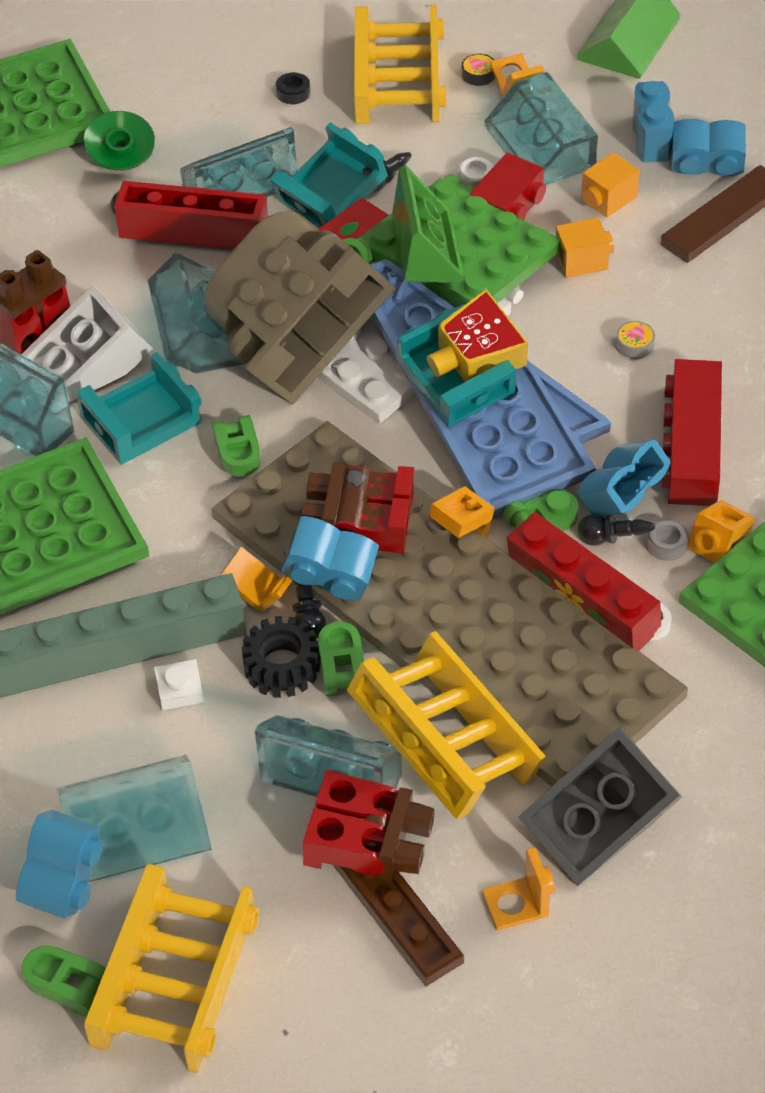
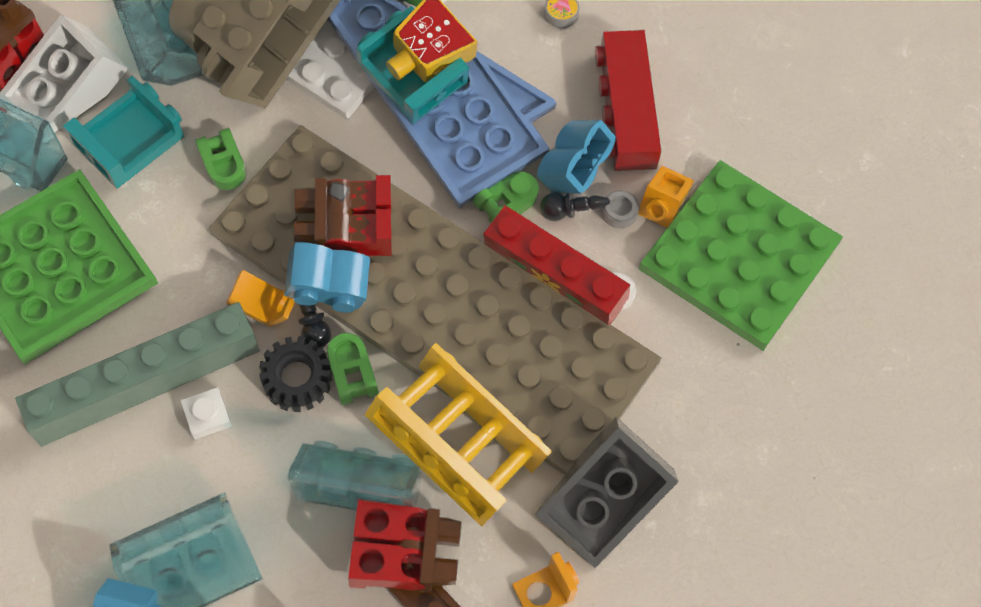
camera: 15 degrees left, 15 degrees up
(463, 513) = (439, 210): light orange bracket -> none

